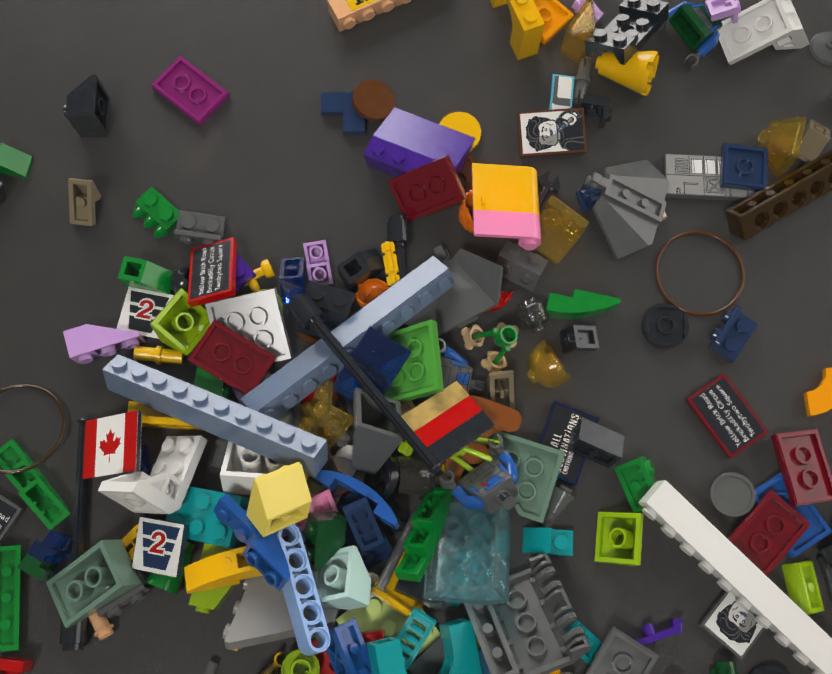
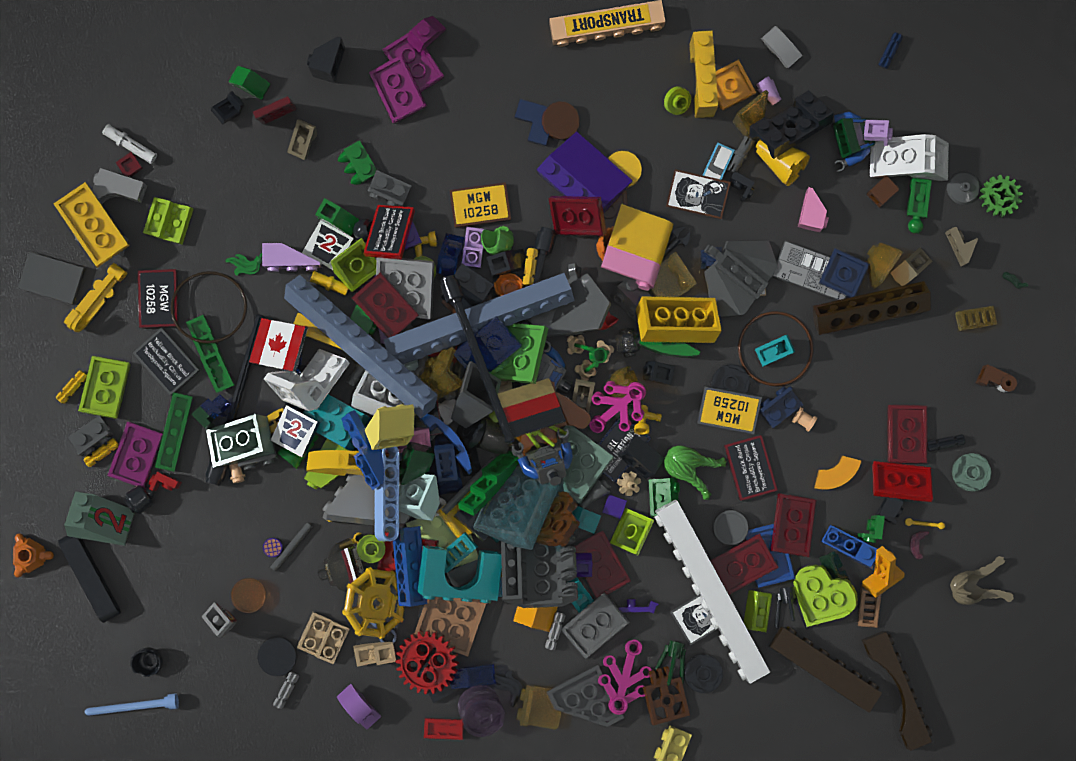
camera: 20 degrees right, 10 degrees up
(38, 175) = (275, 110): none -> dark red tile
(50, 366) = (244, 265): none -> green piece
(180, 120) = (397, 89): none -> magenta tile
(192, 53) = (425, 33): none -> magenta slope
(311, 216) = (480, 205): none -> yellow tile
(344, 246) = (498, 240): none -> bright green hair
(494, 44) = (677, 100): none -> lime plate
(530, 555) = (559, 522): none -> reddish brown plate
(550, 386) = (619, 404): none -> dark pink plant
(577, 598) = (584, 564): none -> dark purple slope
(583, 268) = (678, 319): none -> yellow brick
(584, 407) = (642, 427): none -> yellow piece
(585, 514) = (614, 506): none -> dark purple tile
(592, 480) = (629, 483): none -> tan plant
(595, 593) = (607, 569): none -> dark red tile
(648, 436) = (681, 464): none -> bright green hair
(677, 355) = (729, 409): none -> yellow tile
(683, 115) = (813, 213): none -> bright pink slope
(704, 271) = (775, 350): none -> teal slope
(749, 72) = (882, 191): none -> reddish brown panel
(766, 340) = (804, 419): none -> light nougat bush
(790, 74) = (918, 203): none -> green plate

